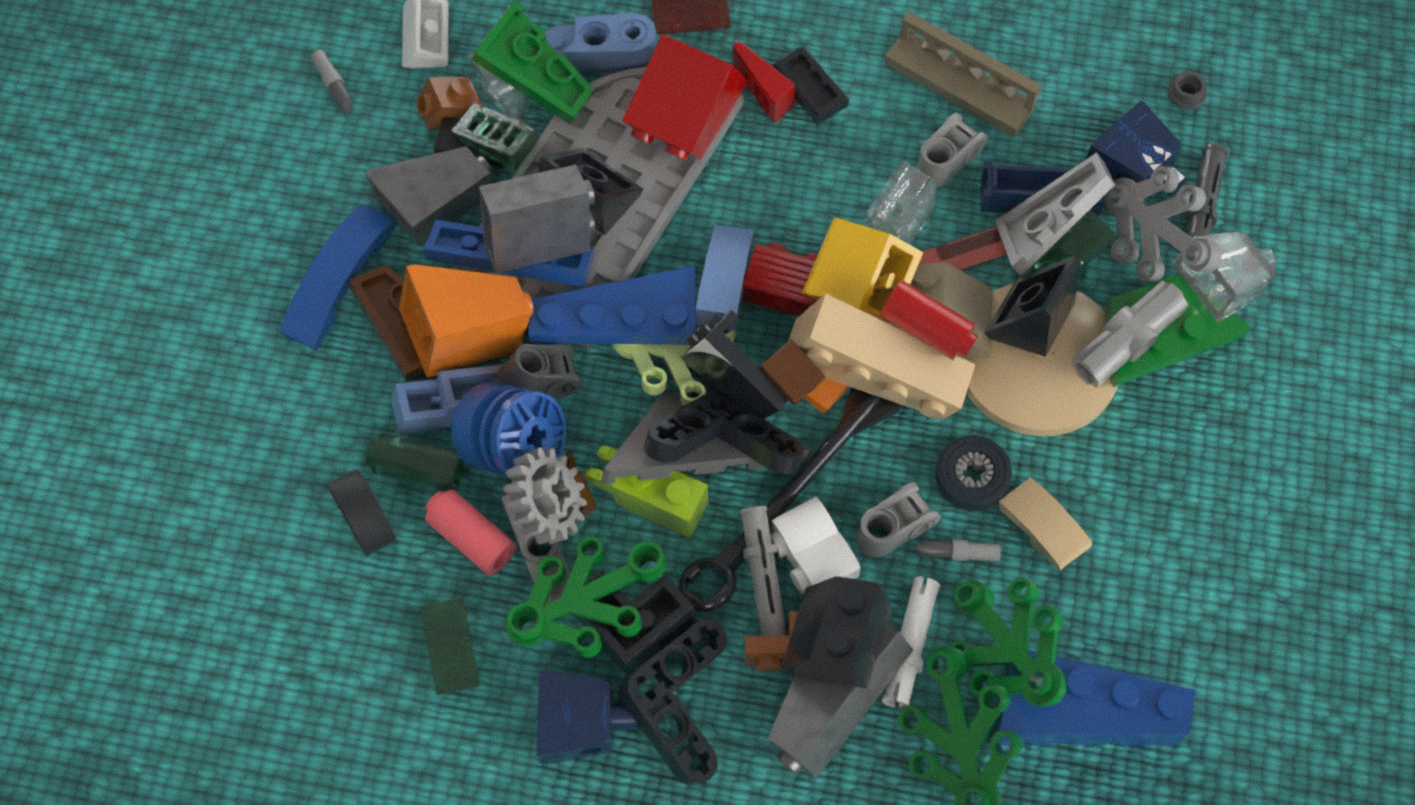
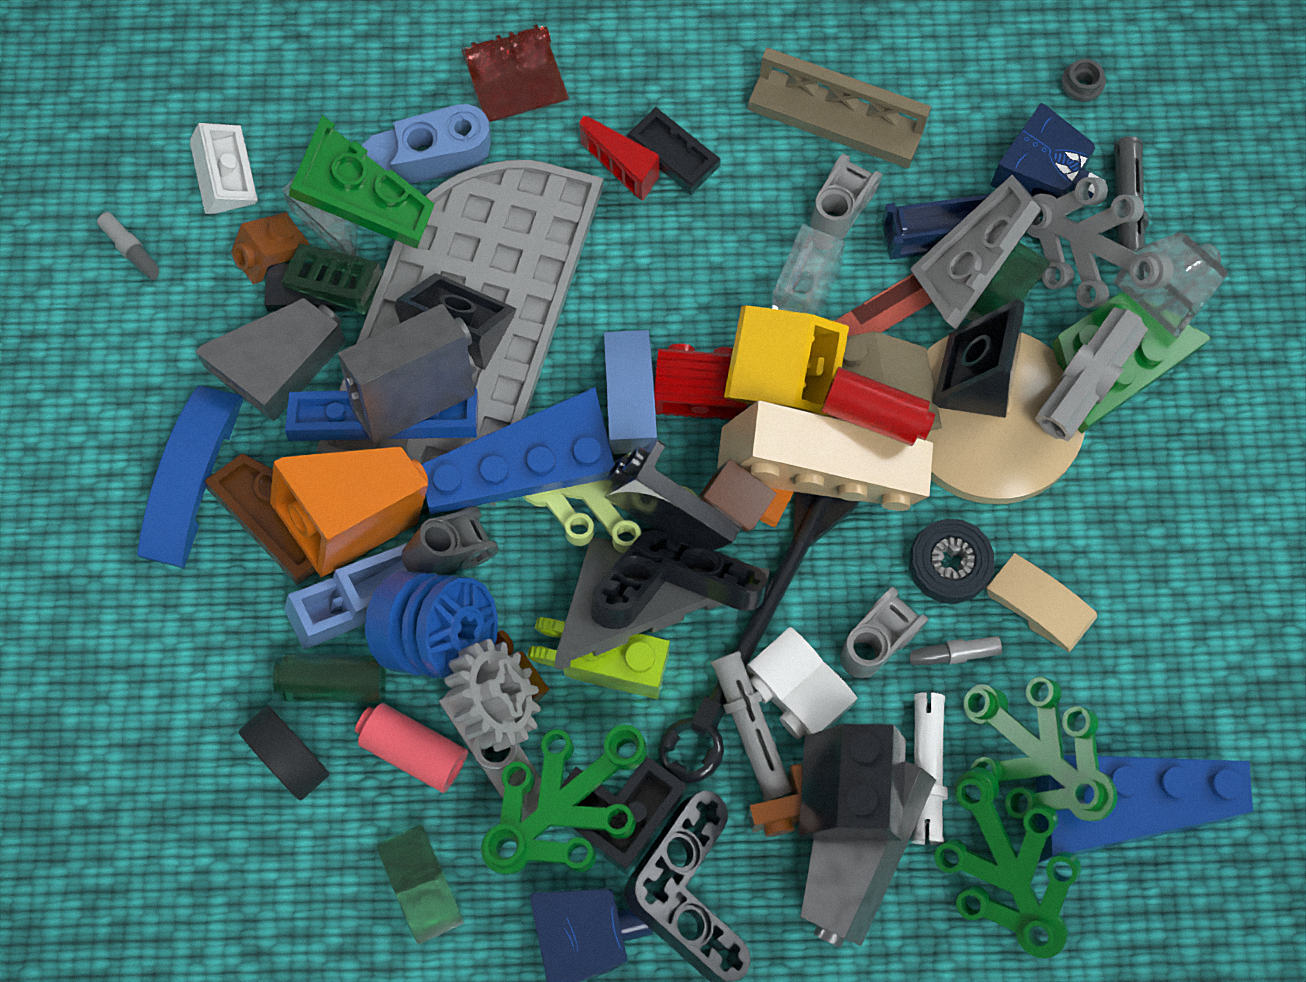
camera: 15 degrees left, 5 degrees up
(683, 98) = (538, 196): red slope -> none

